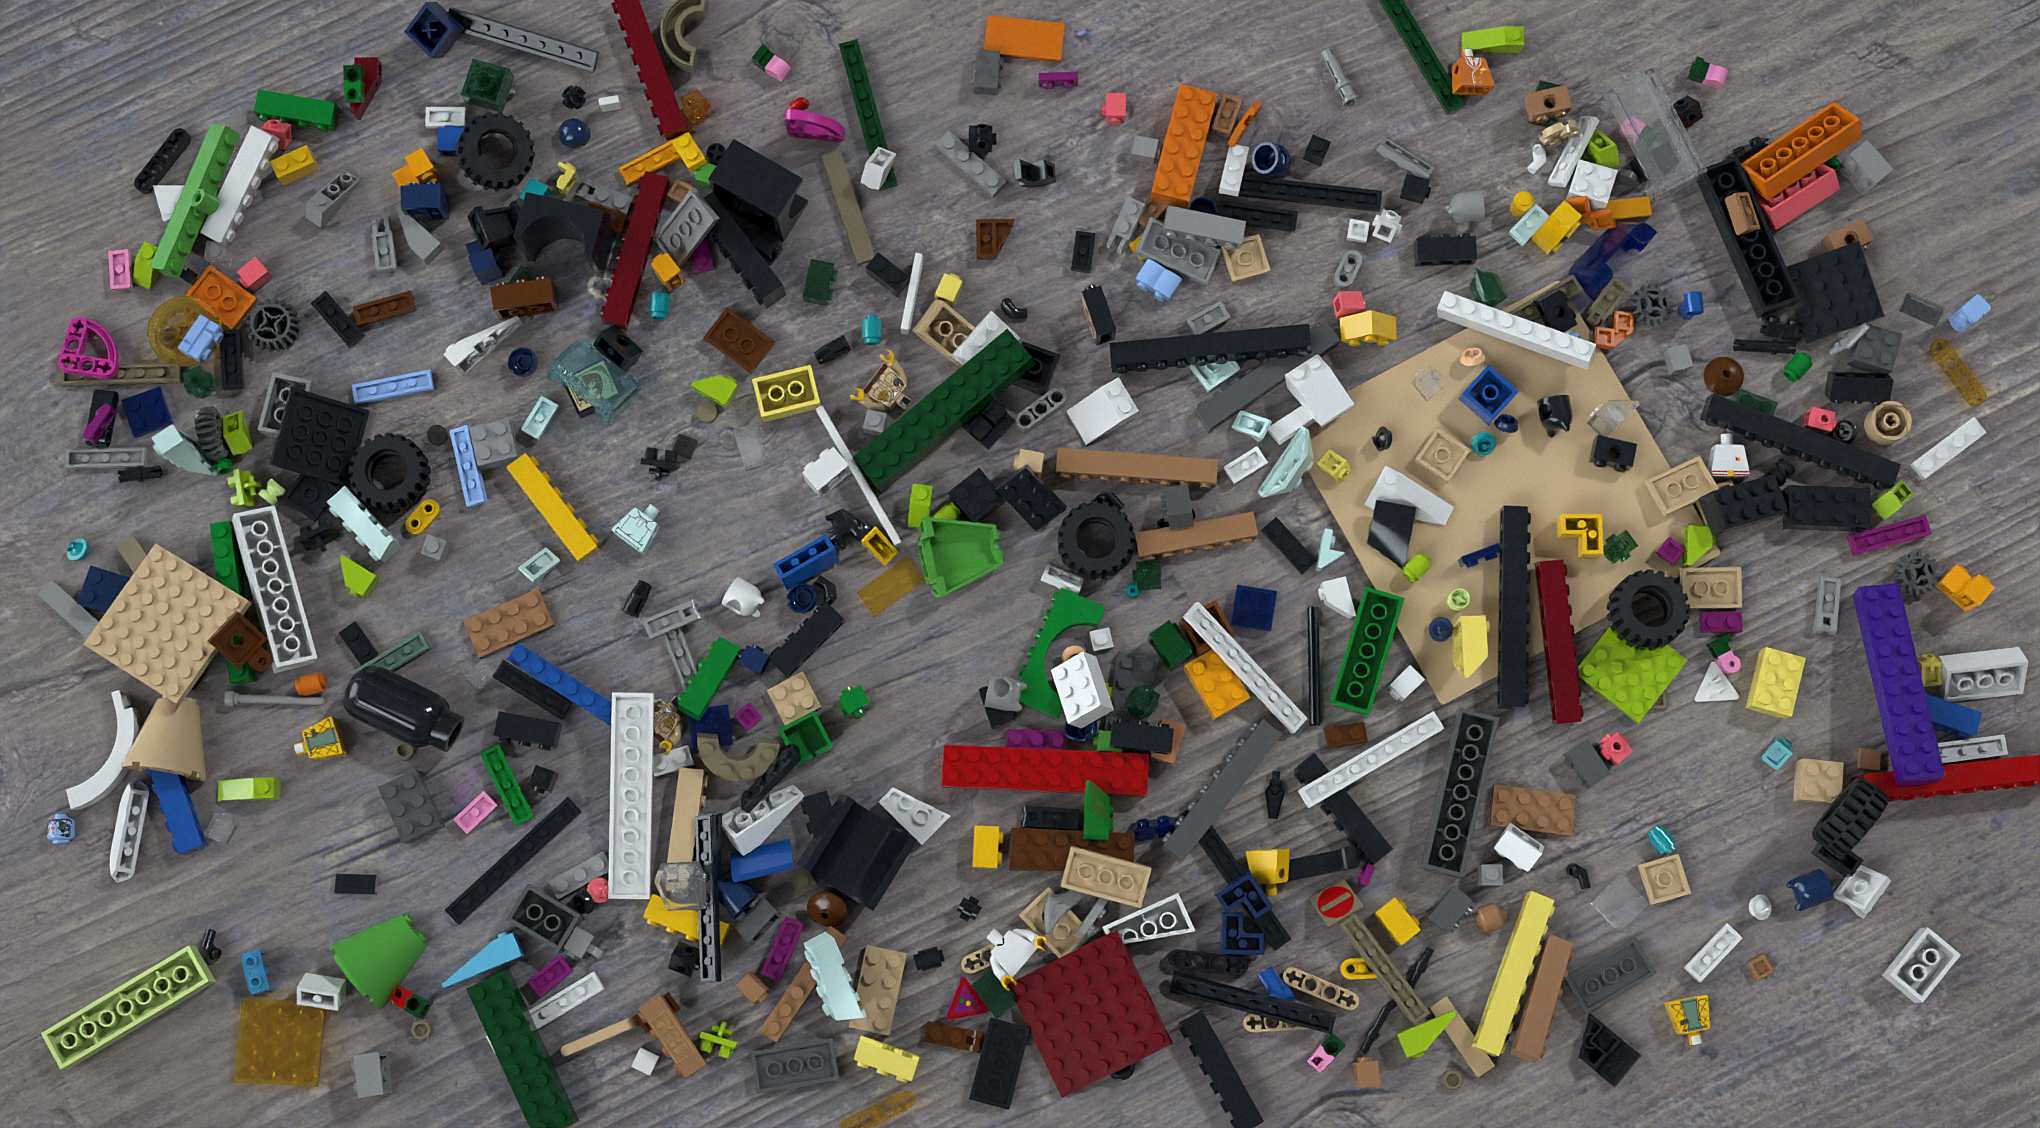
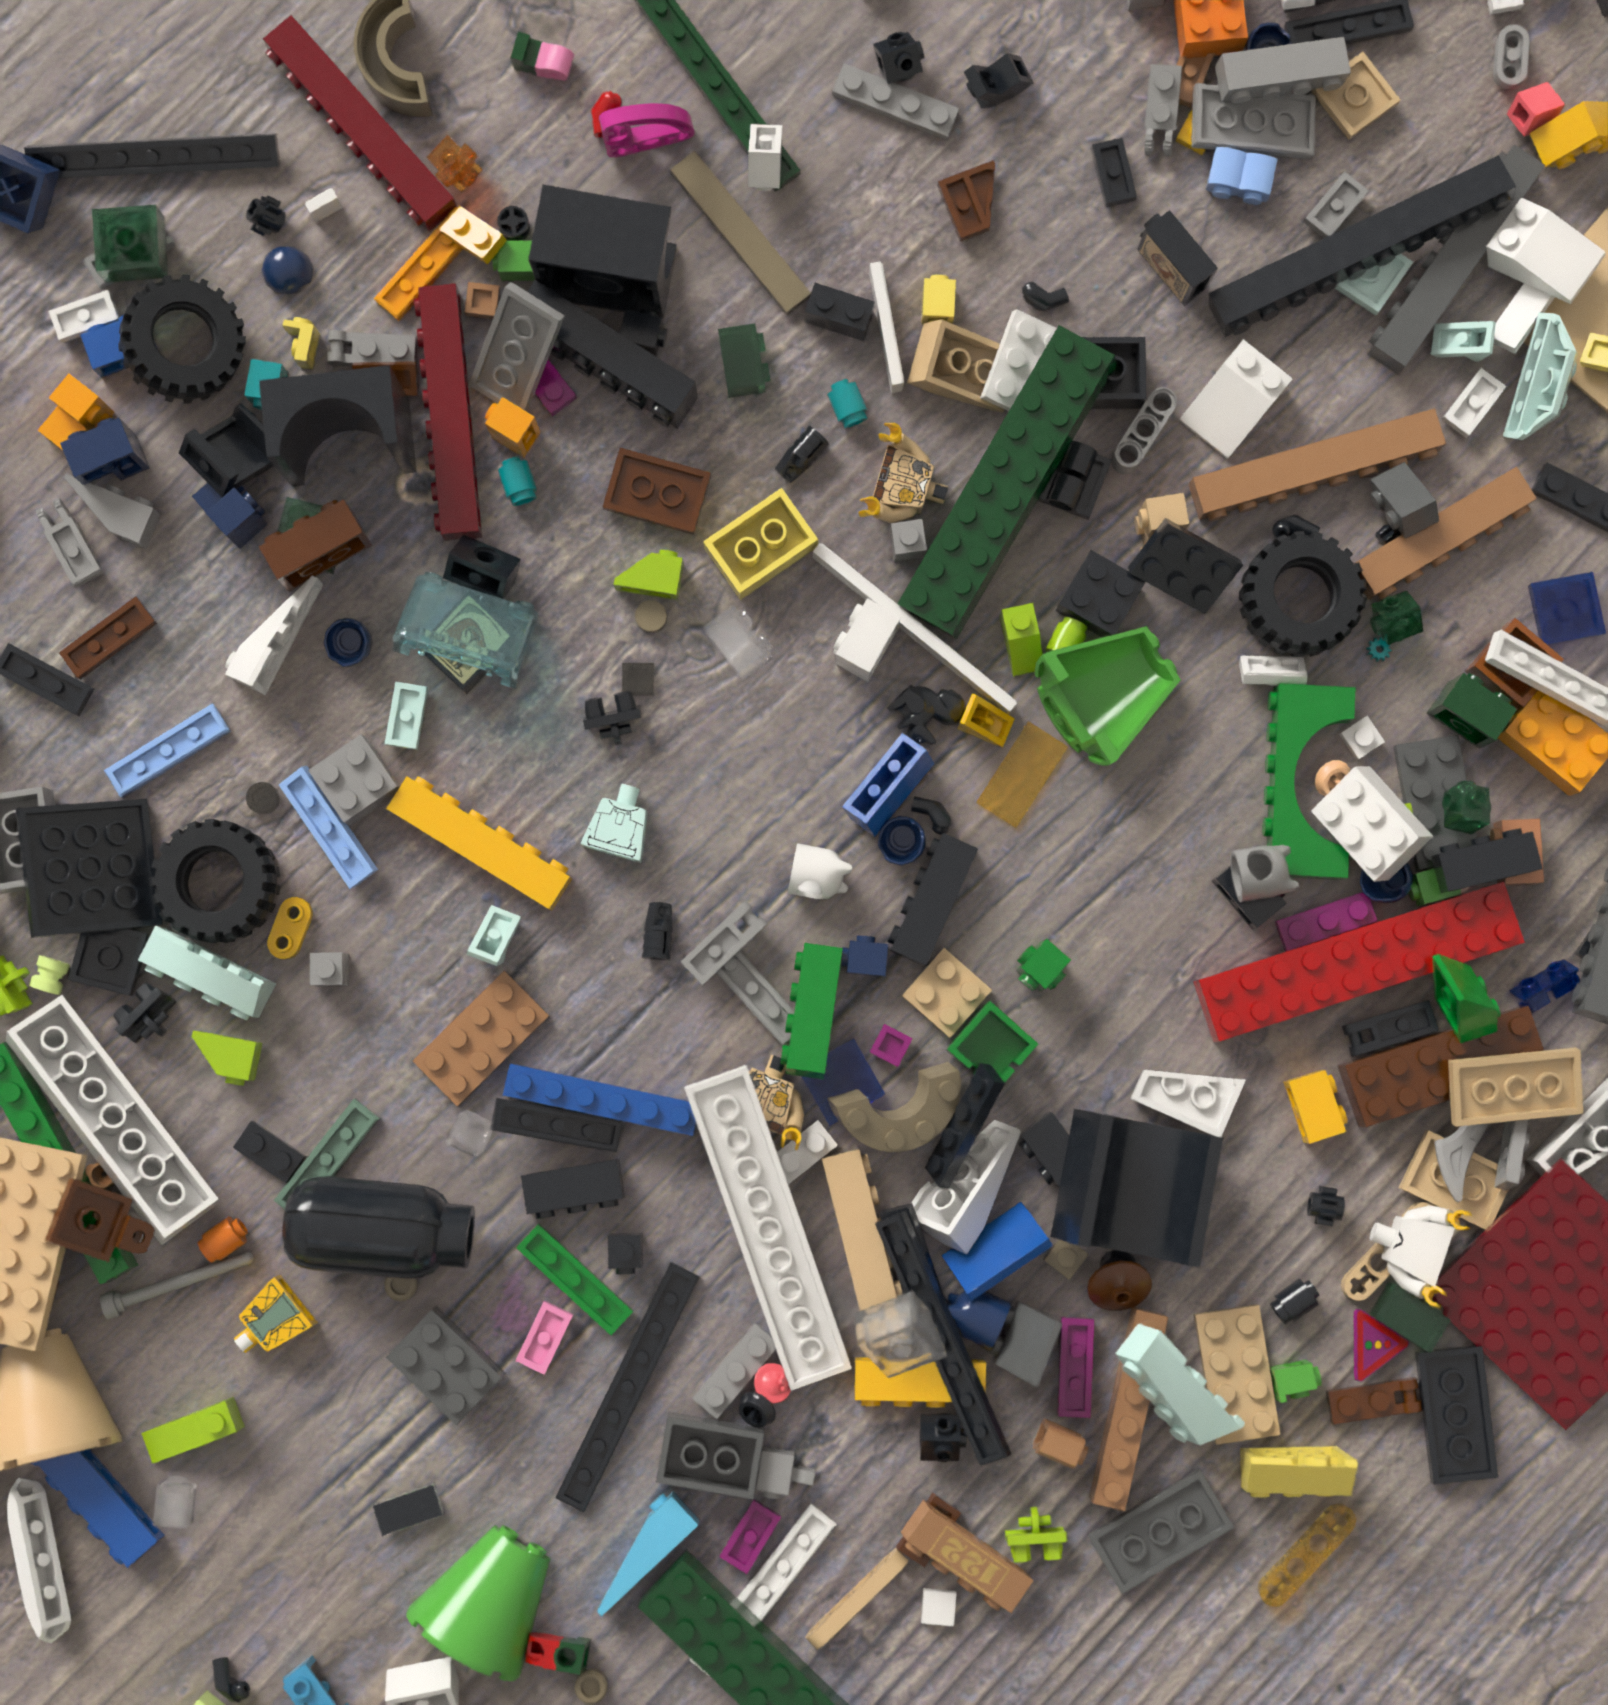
camera: 20 degrees left, 5 degrees up
(910, 1005) = (1294, 1379): none -> bright green brick

